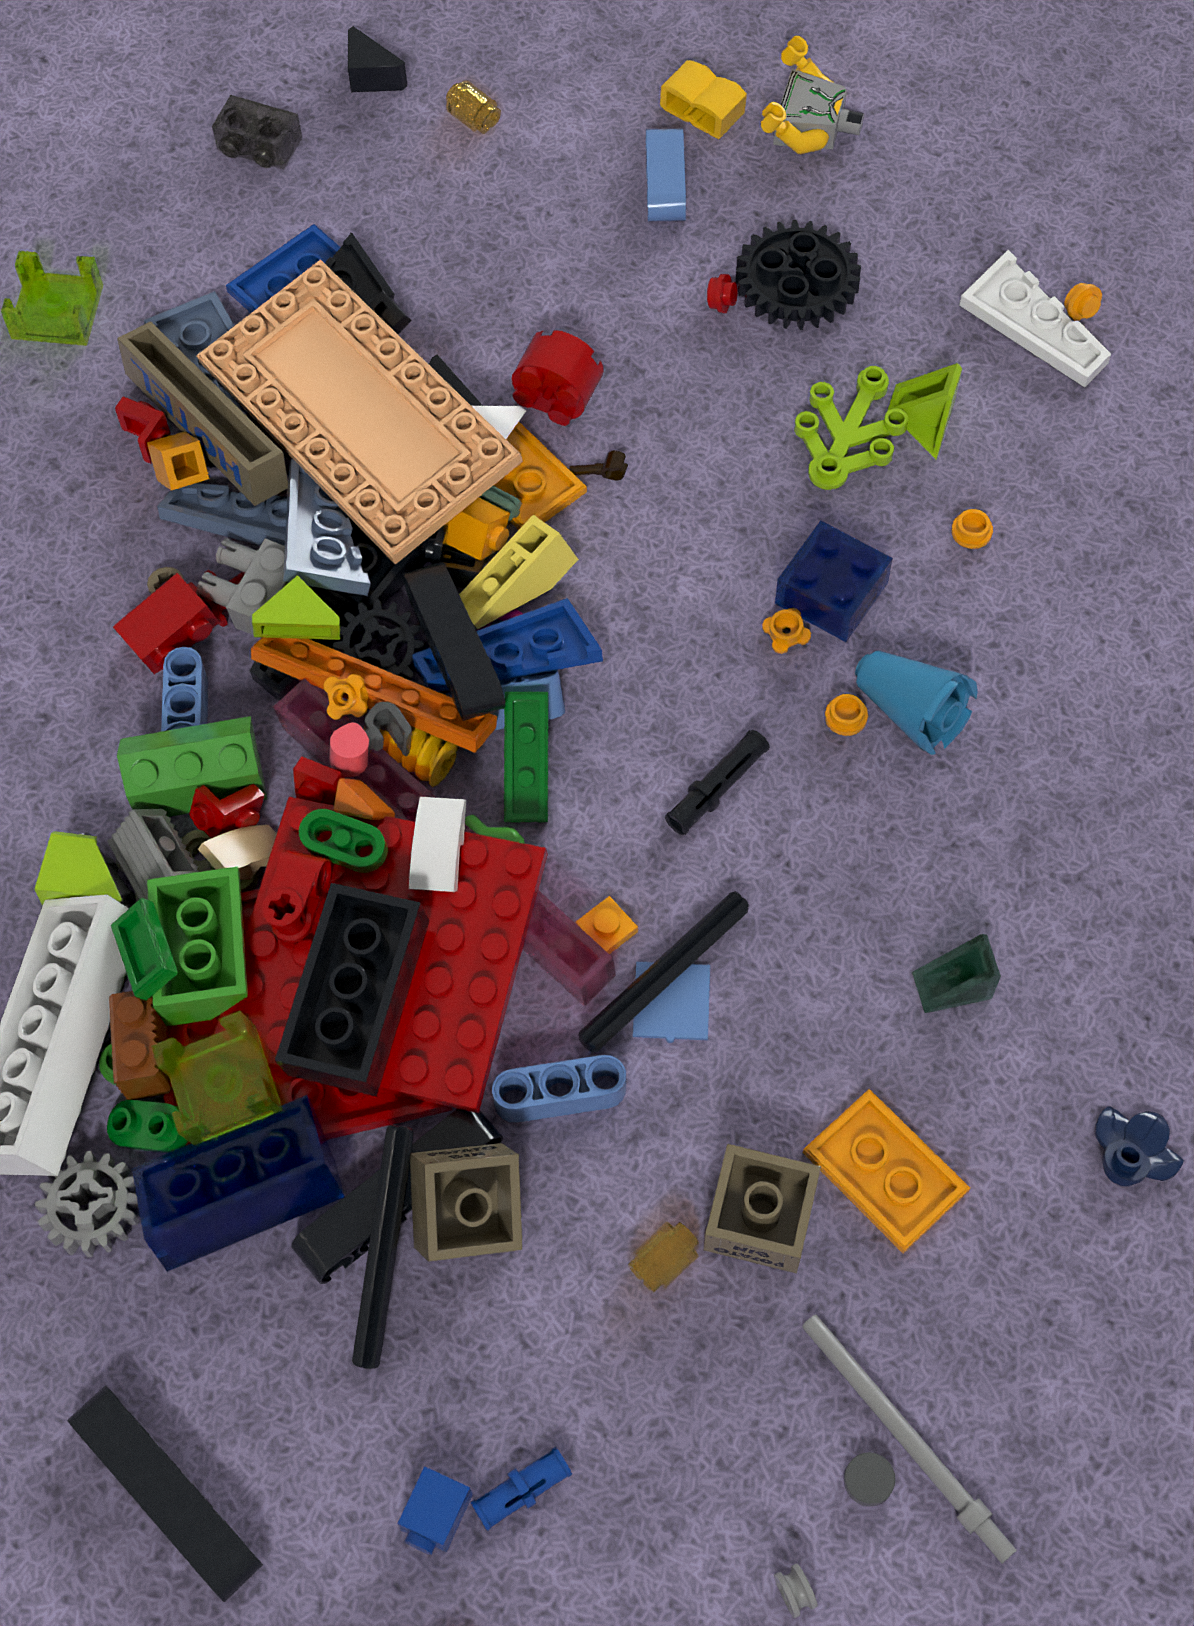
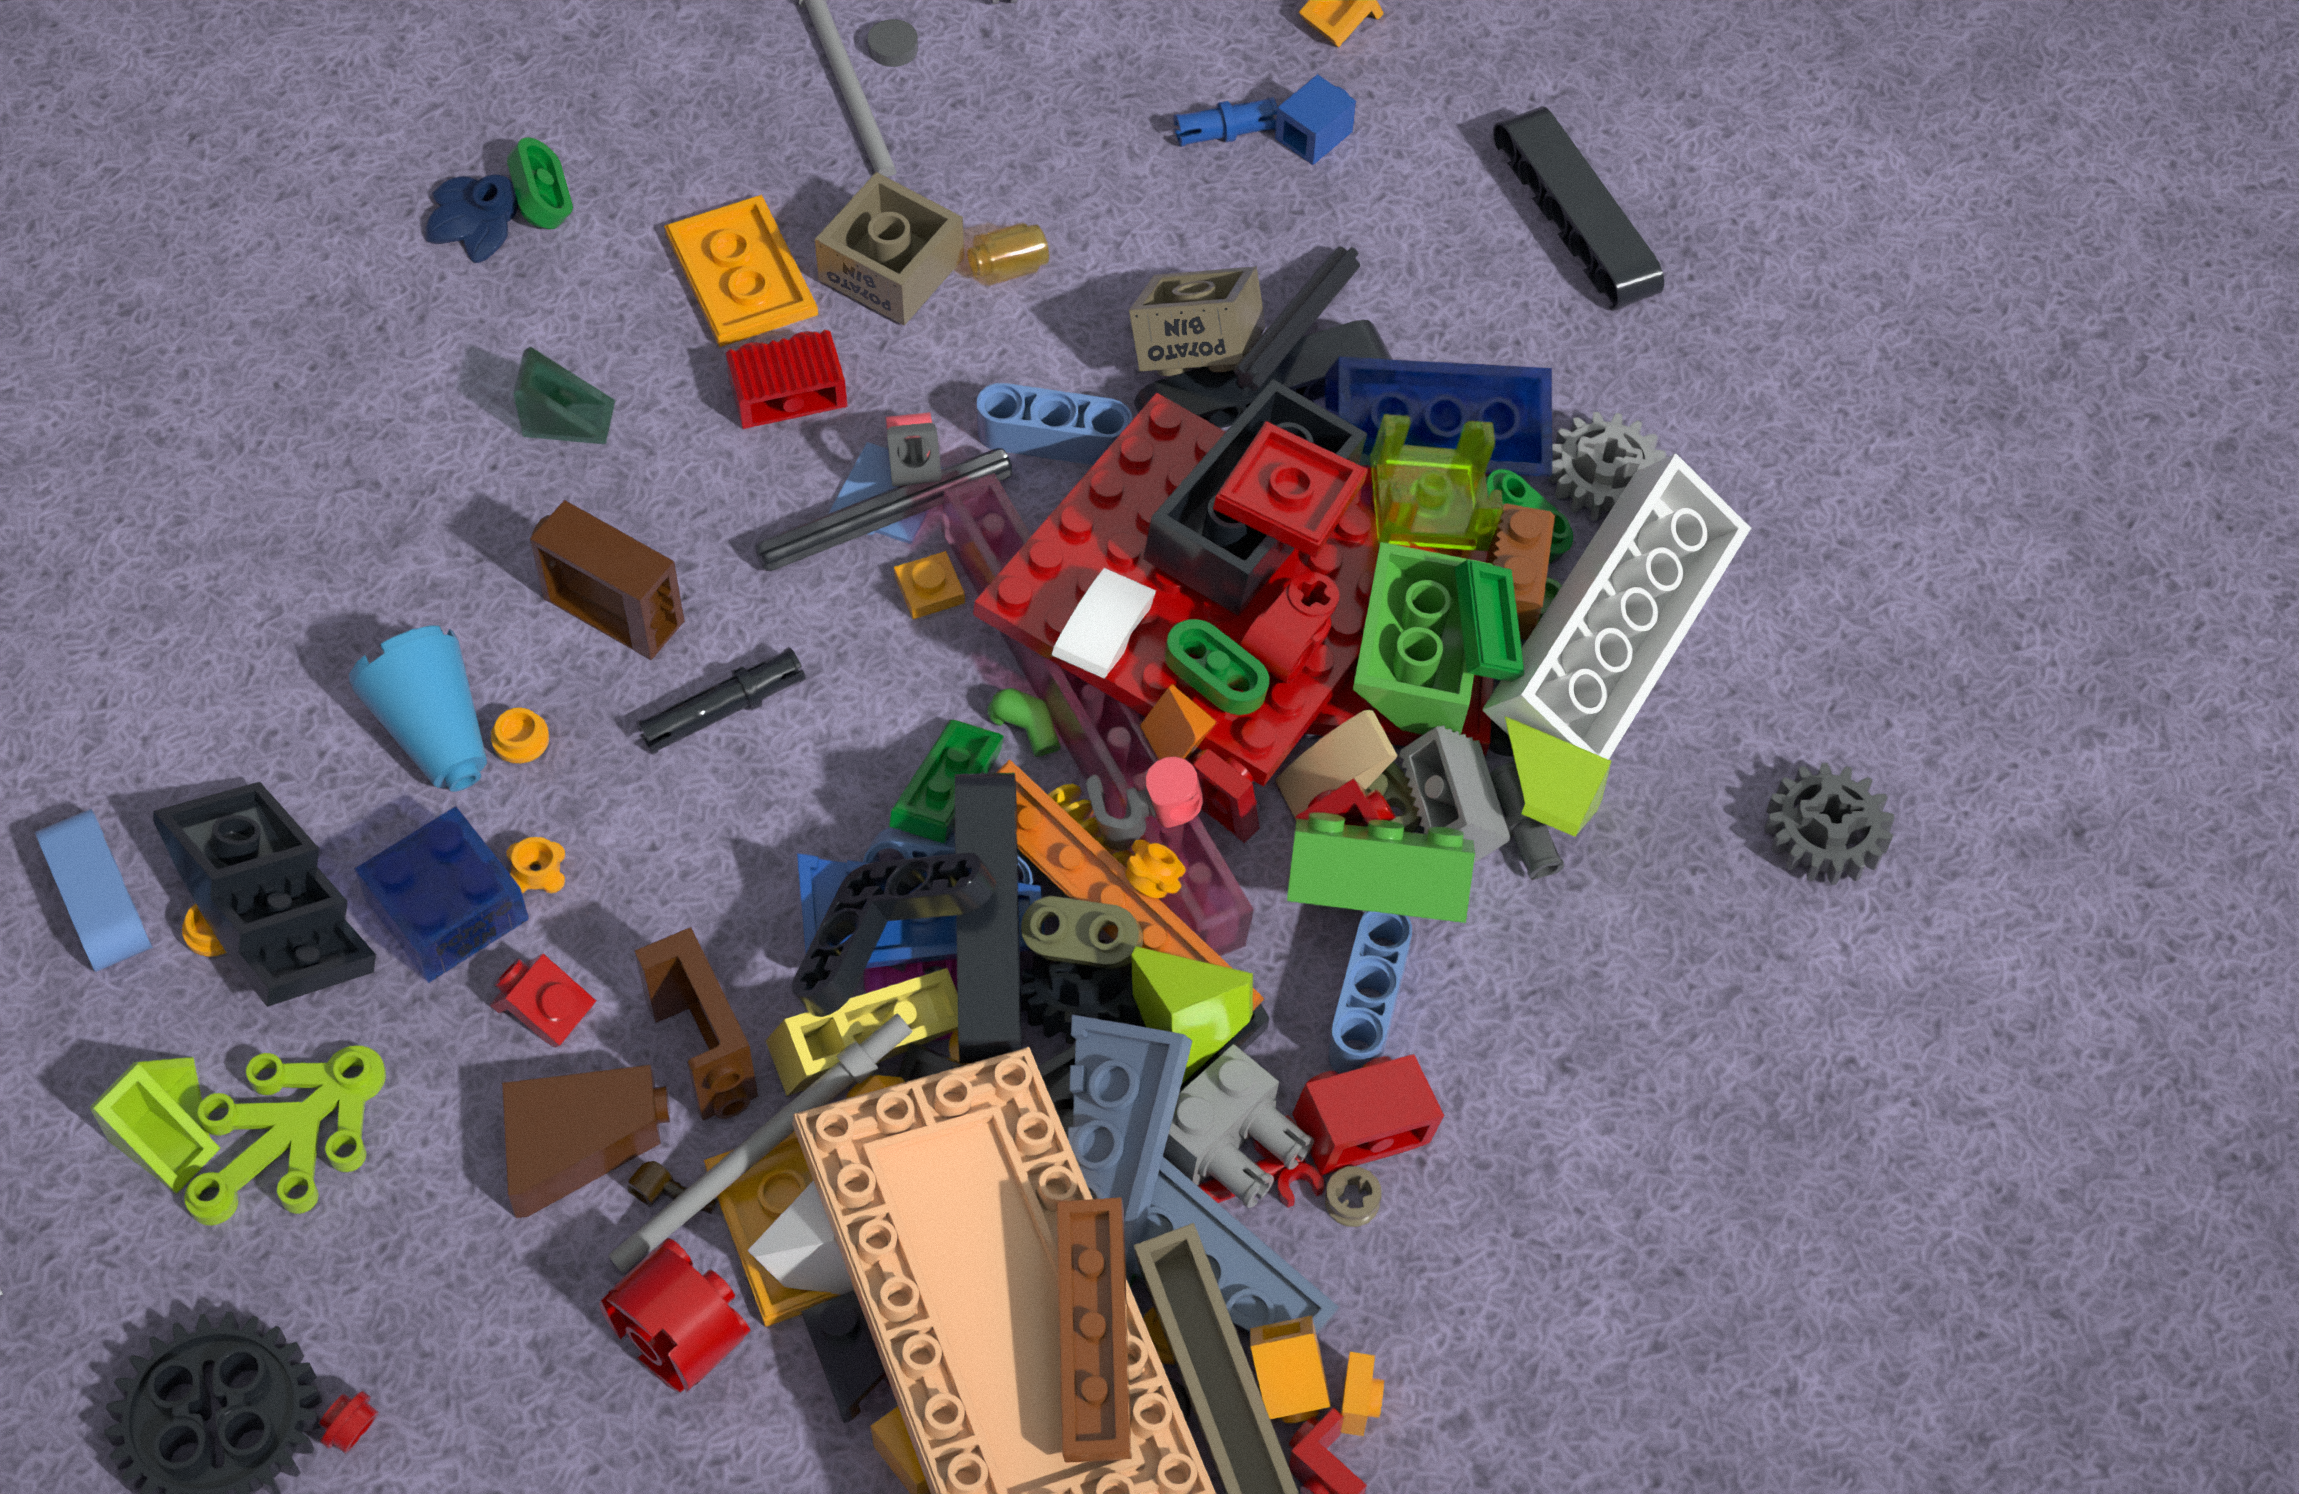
camera: 165 degrees left, 5 degrees down
(133, 469) = (1361, 1394): none -> light orange plate
(290, 389) = (1093, 1330): none -> dark orange plate
(318, 967) = (1290, 489): none -> red tile
(385, 652) = (1079, 932): none -> olive plate
(506, 526) = (855, 1063): none -> light grey bar
(525, 608) = (864, 906): none -> black beam
(631, 558) = (679, 979): none -> reddish brown panel
(666, 1025) = (913, 449): none -> dark grey leg
(671, 473) = (576, 1130): none -> reddish brown slope
(737, 544) = (542, 998): none -> red bracket
(794, 1062) = (786, 378): none -> red brick
(839, 819) = (607, 579): none -> reddish brown window
(950, 545) = (263, 892): none -> black slope
(1063, 522) = (93, 890): none -> medium blue beam
(1094, 1192) = (539, 183): none -> green plate

